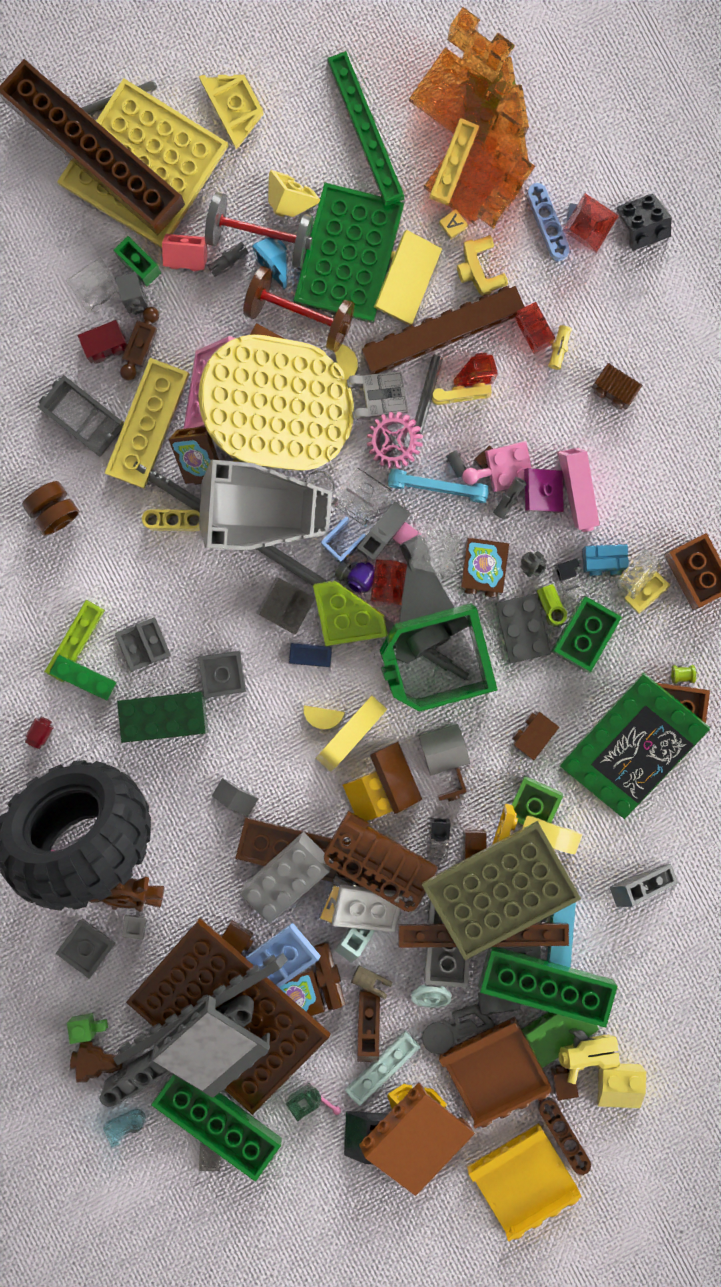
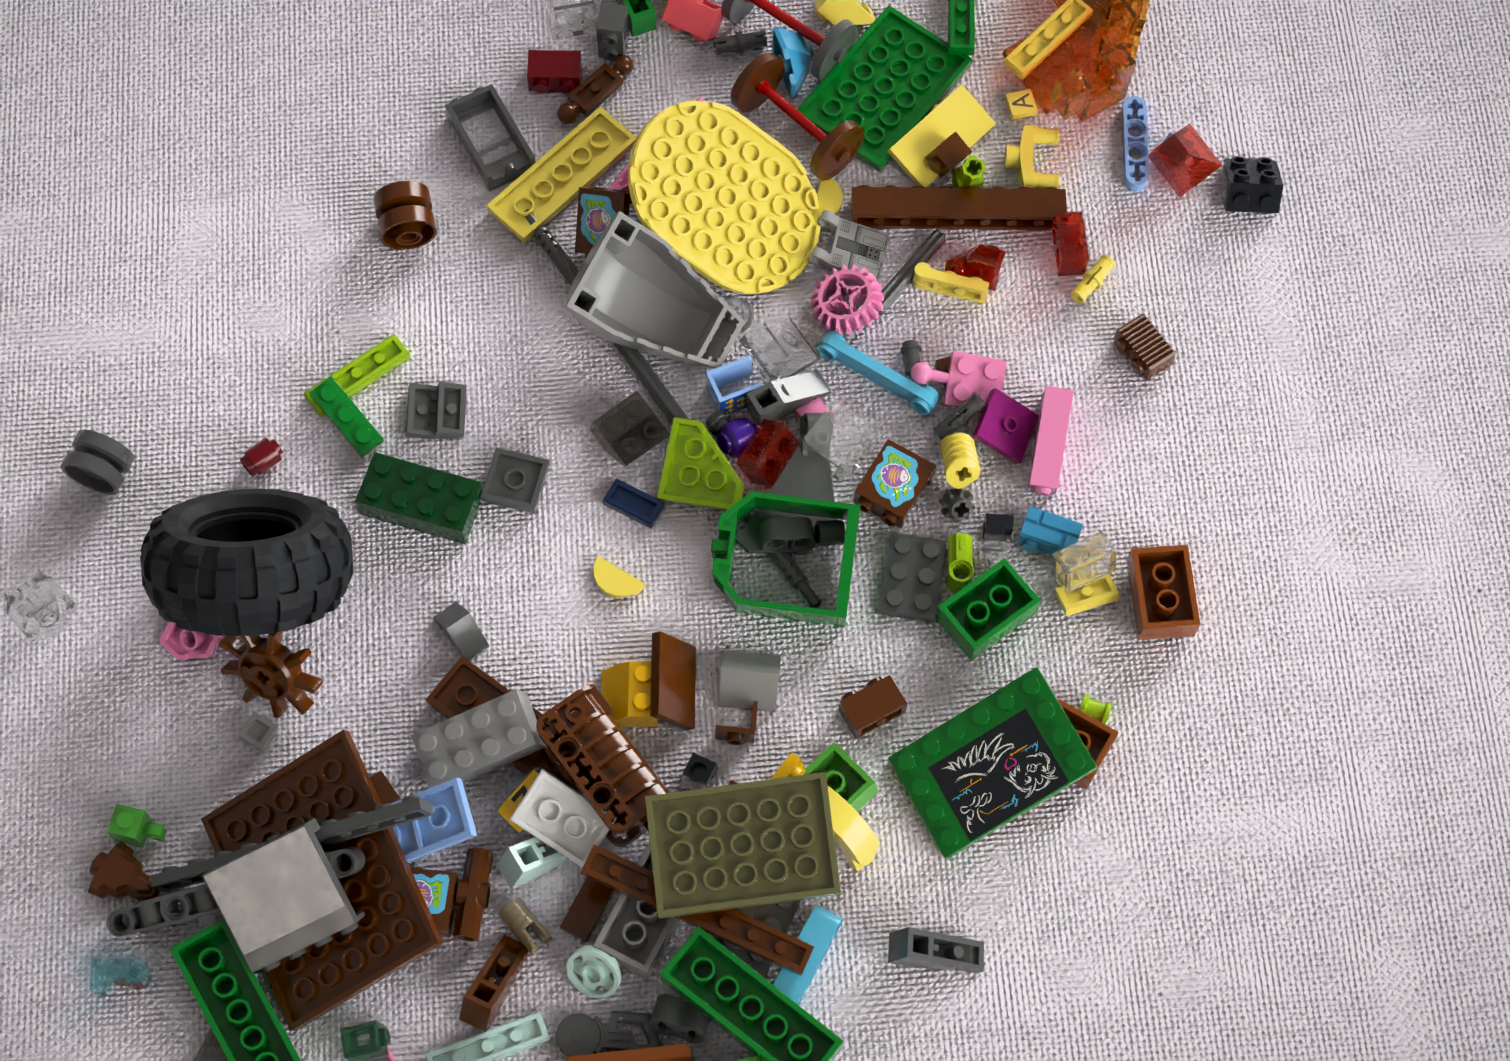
camera: 20 degrees right, 20 degrees down
(85, 948) = (185, 732): dark grey plate -> none
(163, 520) = (531, 279): light yellow beam -> none
(351, 733) = (638, 607): light yellow beam -> none
(404, 959) = (586, 909): none -> reddish brown tile
(419, 292) = (948, 154): none -> reddish brown brick
(440, 302) = (969, 173): none -> lime piece
(524, 532) = (959, 459): none -> light yellow piece

